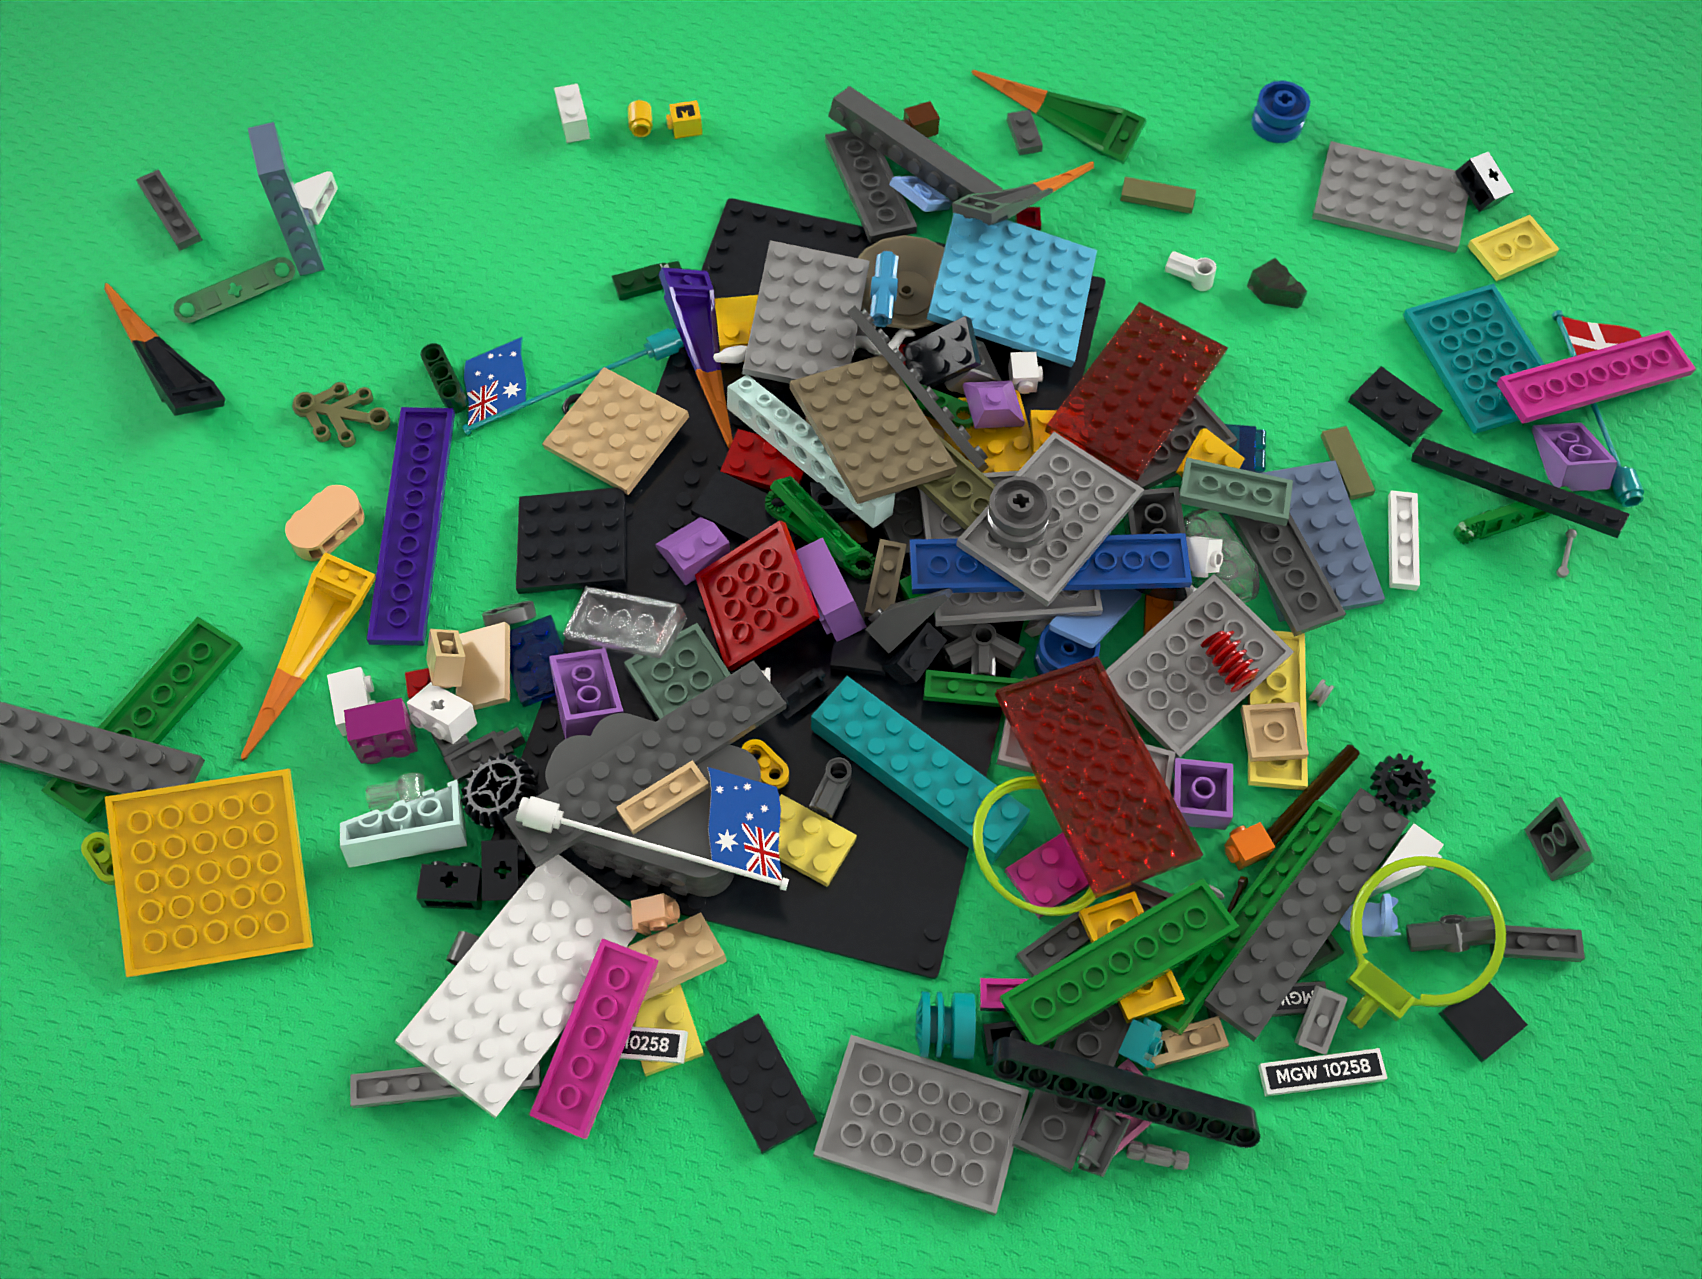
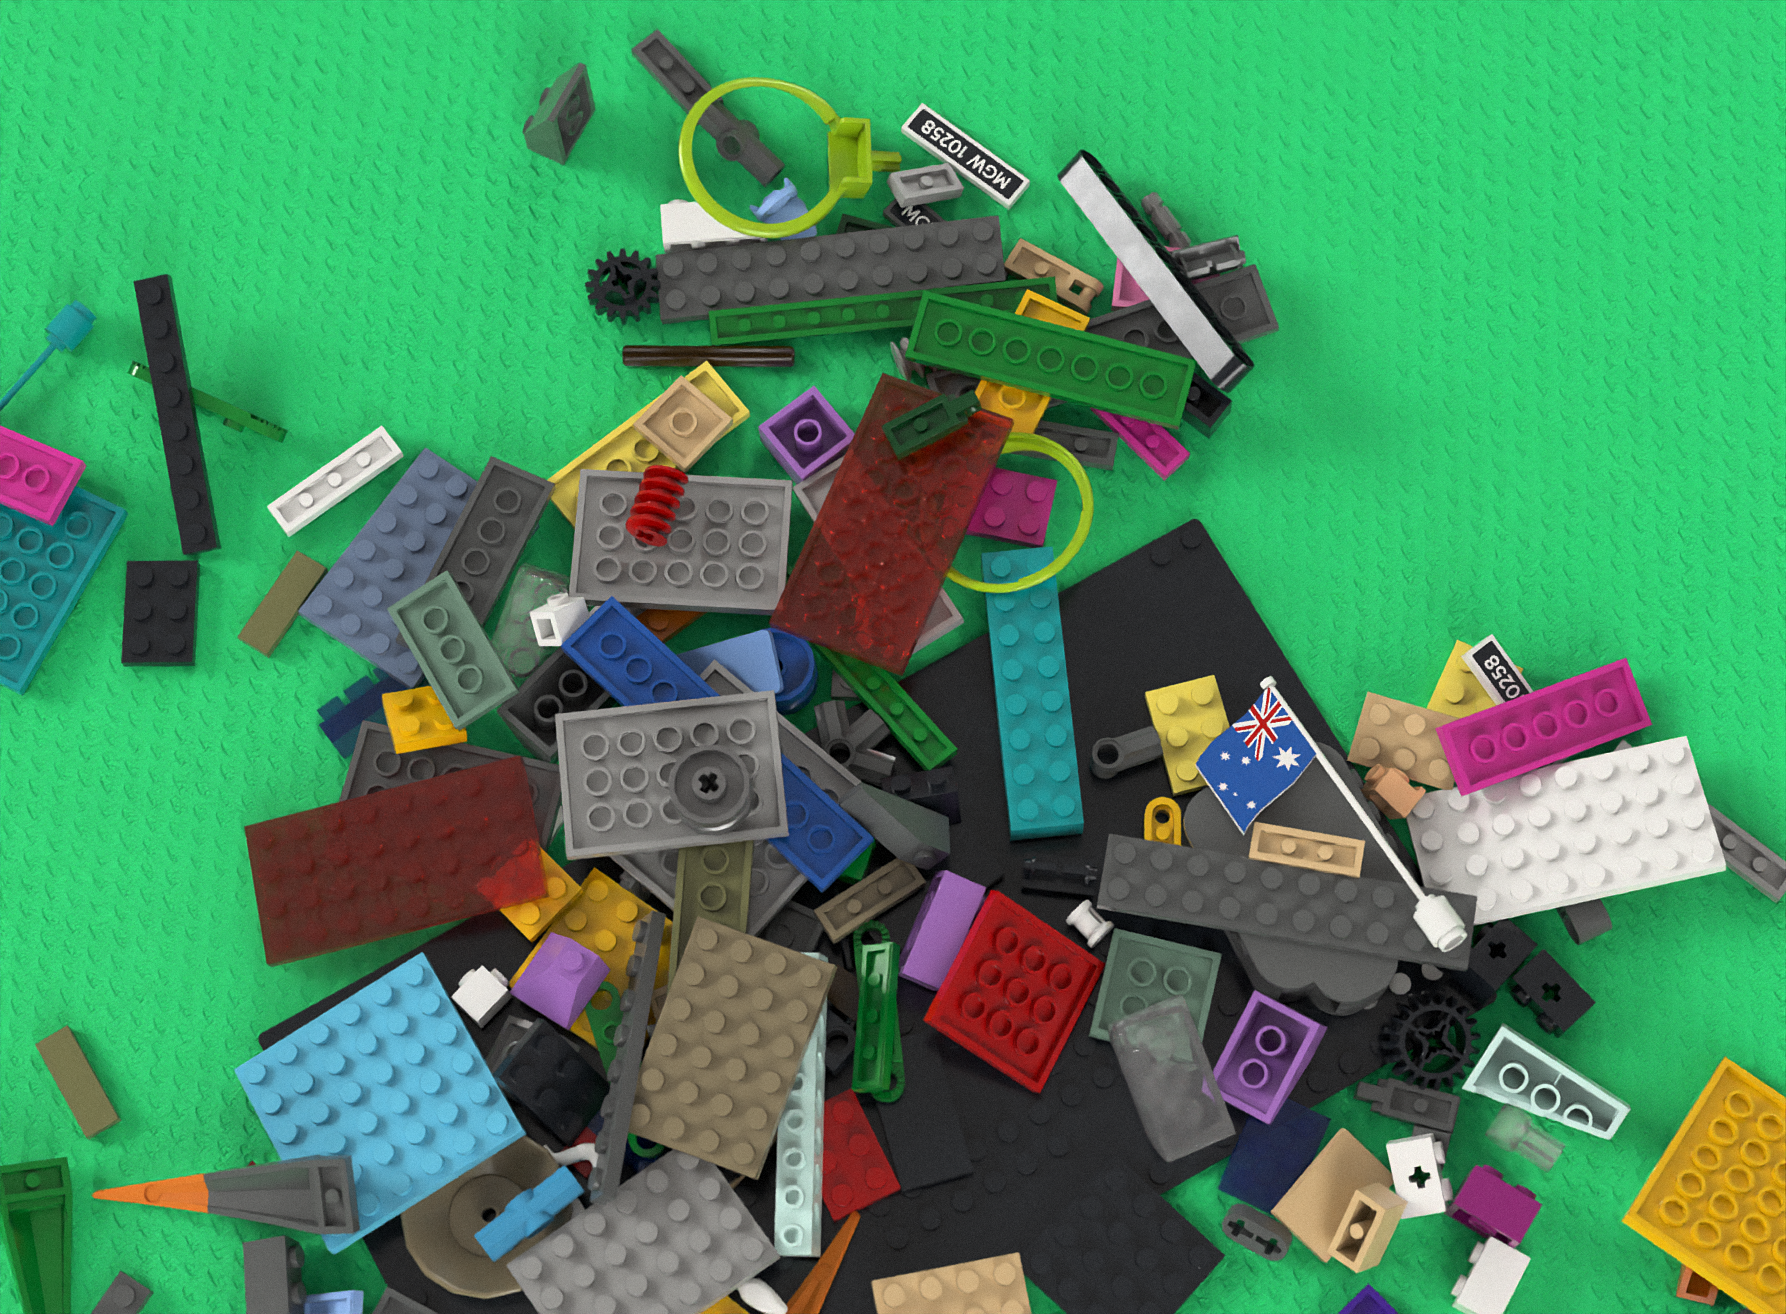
camera: 130 degrees left, 10 degrees up
(416, 681) = (1407, 1243): red plate -> none
(693, 548) = (1012, 1124): medium lavender slope -> none
(760, 1083) = (1430, 574): black plate -> none
(922, 1124) = (1334, 419): light grey plate -> none
(947, 1025) = (1243, 465): teal wheel -> none
(1141, 841) = (930, 422): none -> dark green hinge
(1142, 1042) = (1095, 296): teal brick -> none
(1199, 272) = (164, 956): white piece -> none
(1242, 884) = (882, 338): dark brown hinge -> none
(1248, 845) = (816, 364): orange brick -> none
(1276, 285) = (105, 850): clear smoke slope -> none
(1321, 693) = (591, 424): light grey bush -> none
(1484, 1021) = (792, 61): black tile -> none
(1563, 571) = (230, 320): light grey hinge -> none
(1574, 457) = (75, 398): medium lavender slope -> none

